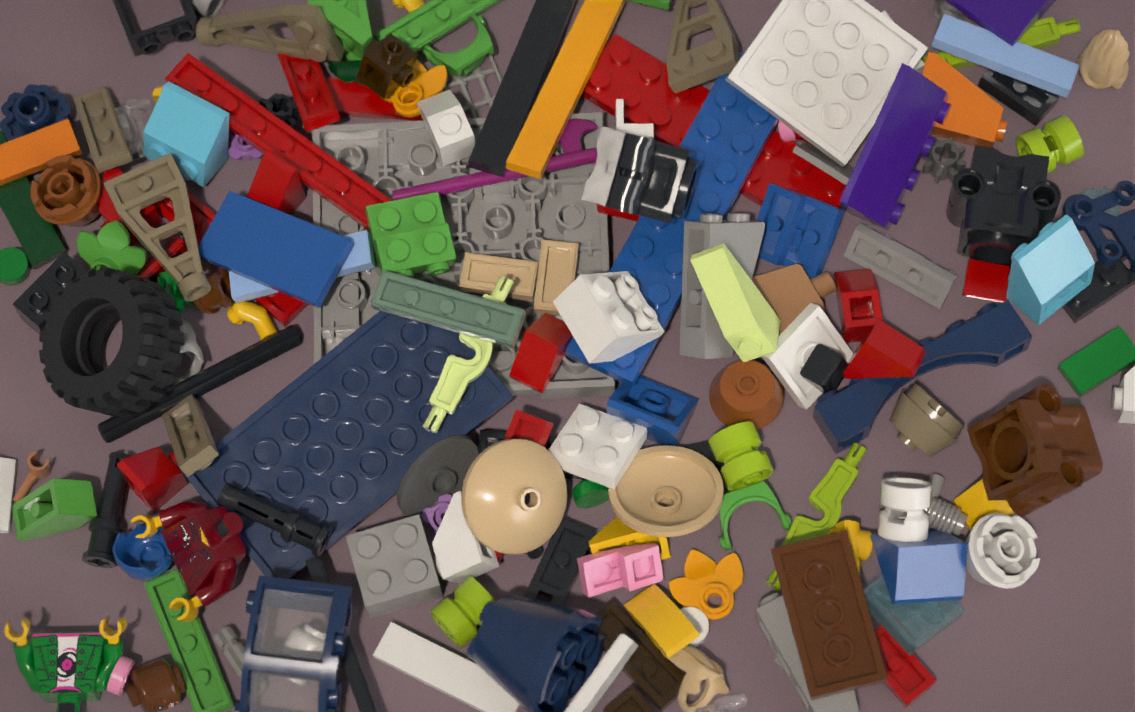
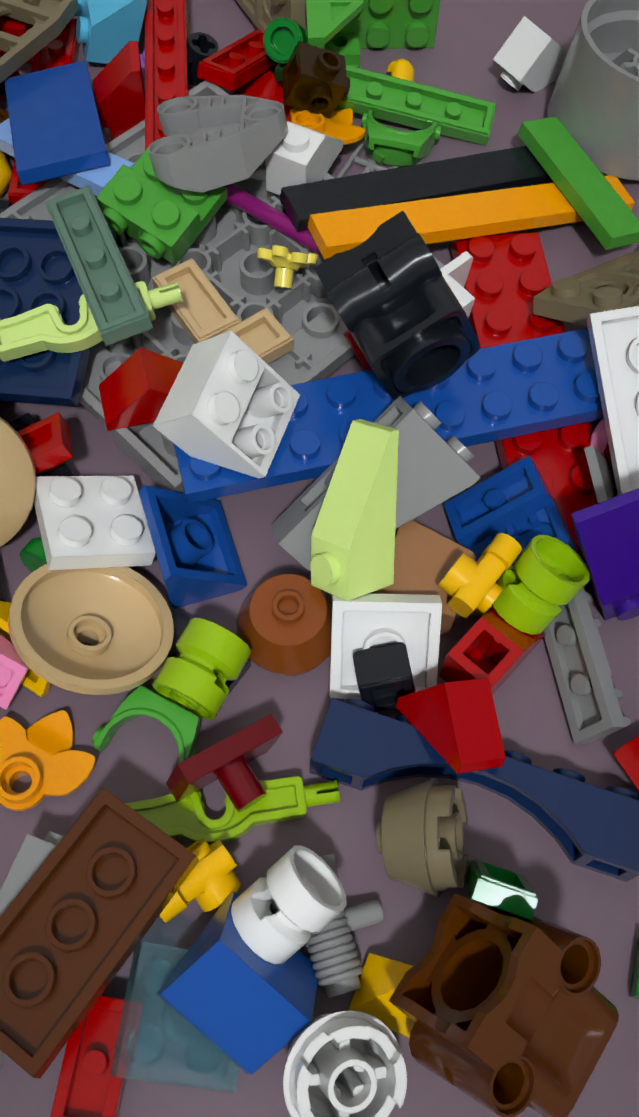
camera: 40 degrees right, 5 degrees down
(335, 55) = (281, 39): none -> green tile
(406, 156) = (215, 139): none -> light grey connector
(520, 202) = (285, 263): none -> light yellow plant
(804, 486) = (228, 764): none -> dark red tile
(817, 278) = (473, 582): none -> yellow plate
(847, 248) = (539, 582): none -> lime wheel
(981, 407) = (501, 889): none -> green tile

